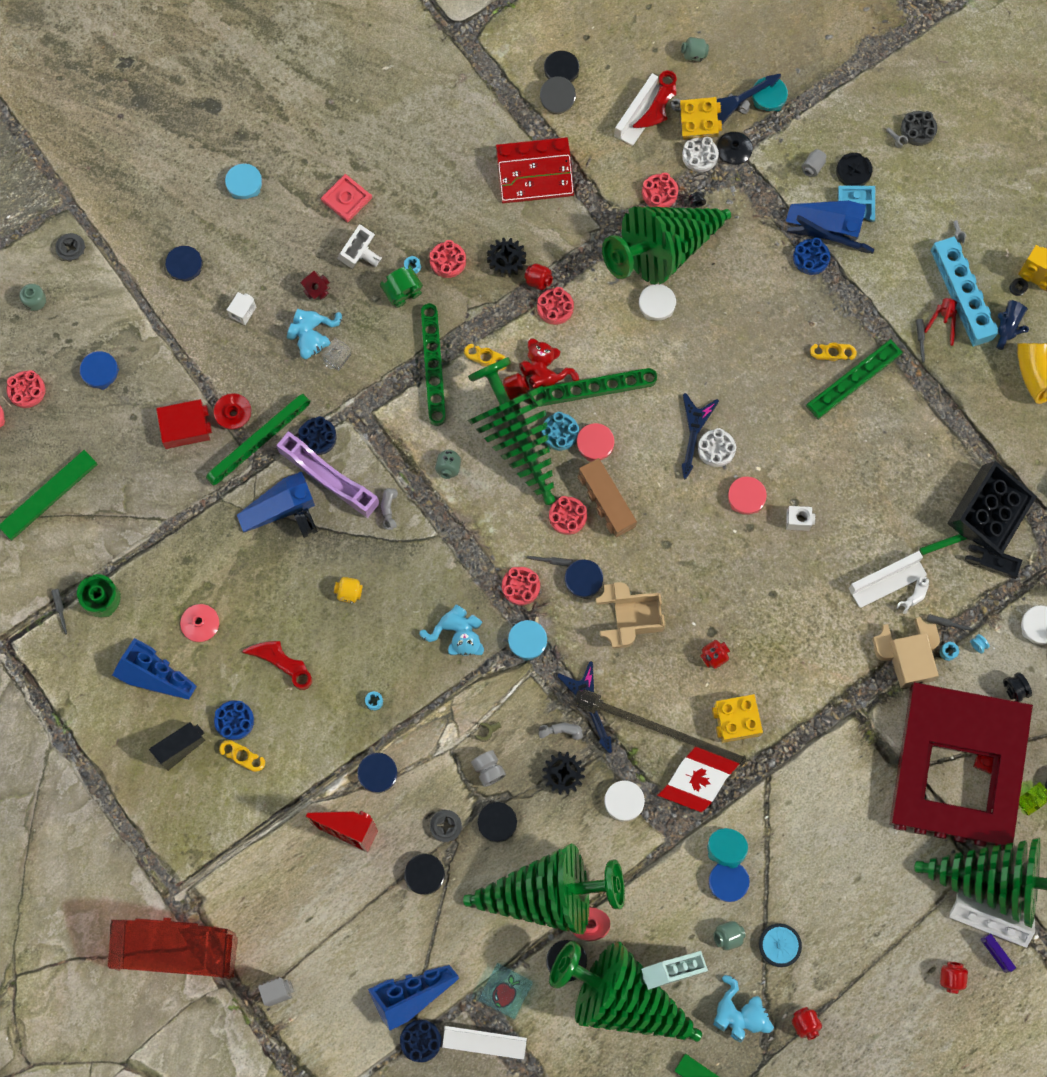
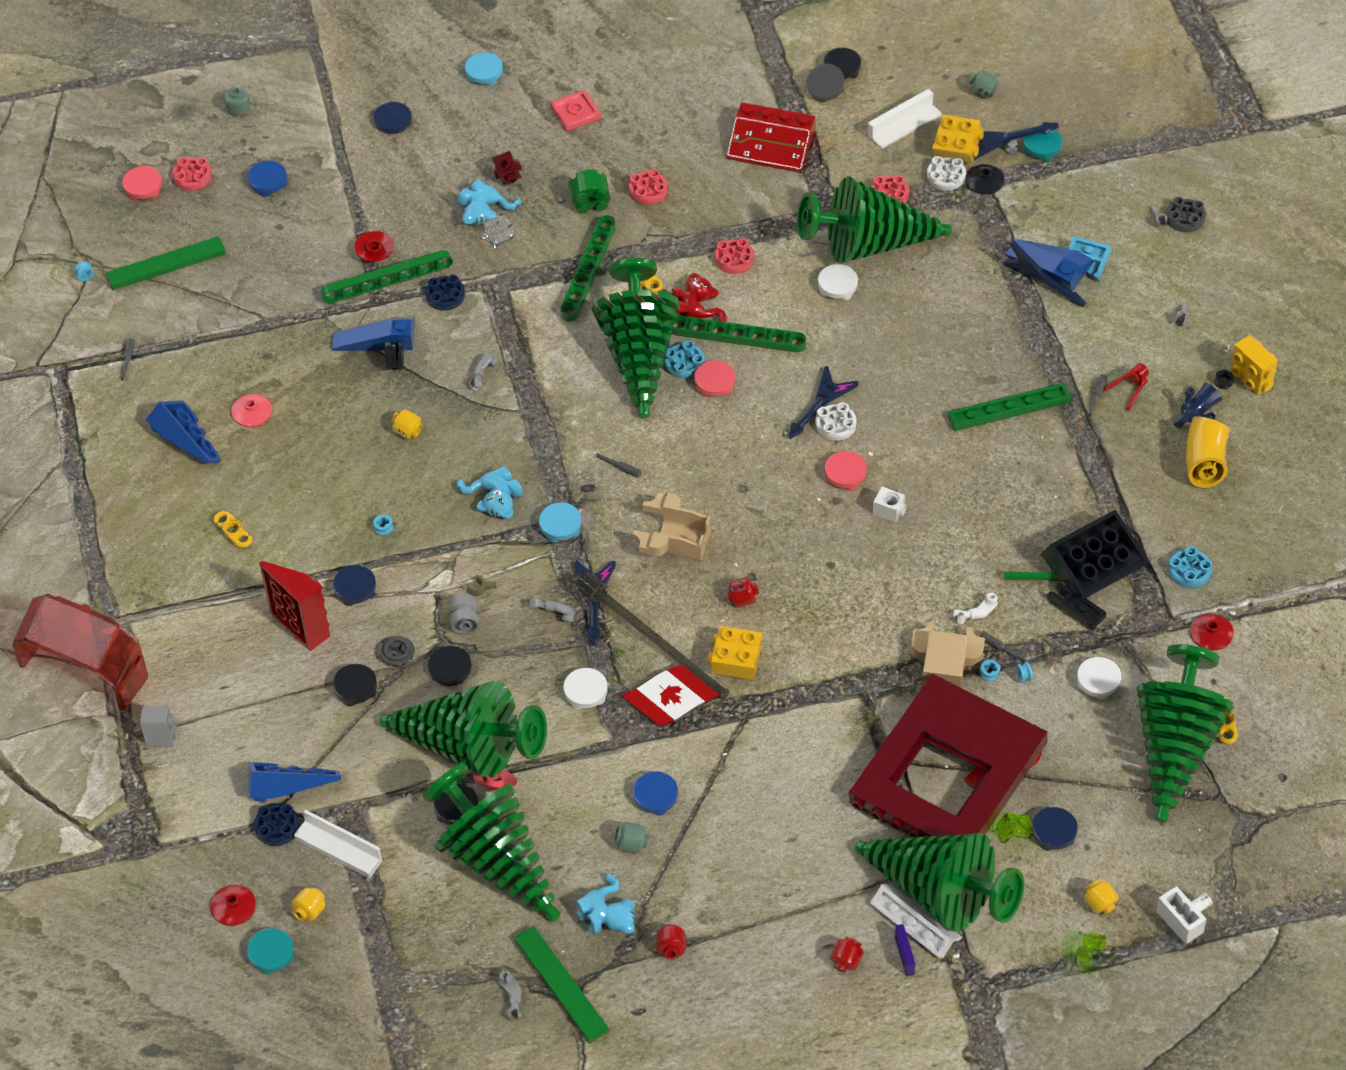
camera: 25 degrees right, 20 degrees down
(68, 240) = (295, 69): dark grey gear -> none
(97, 585) = (168, 353): green brick -> none
(177, 745) = (175, 496): black slope -> none
(184, 423) = (322, 242): red brick -> none
(234, 720) = (241, 497): blue tile -> none
(241, 308) = (427, 167): white brick -> none
(274, 654) = (308, 457): red piece -> none
(317, 468) = (451, 344): lavender arch -> none
(357, 248) = (563, 149): white brick -> none
(413, 259) = (614, 178): medium azure bush -> none
(448, 464) = (558, 351): sand green head -> none
(505, 991) = (382, 812): clear light blue tile -> none
(513, 251) = (705, 200): black gear -> none
(520, 586) = (577, 476): coral tile -> none
(538, 276) = (728, 223): red head -> none
(567, 515) = (655, 432): coral tile -> none
(573, 775) = (536, 644): black gear -> none
(583, 578) = (641, 487): dark blue tile -> none
(607, 498) = (701, 426): medium nougat brick -> none
(656, 112) = (920, 125): red piece -> none
(674, 970) = (555, 831): light aqua brick -> none
(697, 199) = (925, 204): black bush -> none
(727, 847) = (668, 759): teal tile -> none
(780, 945) = (680, 866): medium azure wheel -> none
(811, 256) = (1017, 290): blue tile -> none
(814, 163) = (1058, 211): light grey brick -> none
(826, 356) = (1008, 376): yellow piece -> none
(854, 169) = (1100, 229): black tile -> none
(887, 580) = (954, 585): white panel -> none
(977, 333) = (1161, 364): medium azure brick -> none
(1017, 687) = (1044, 718): black wheel -> none

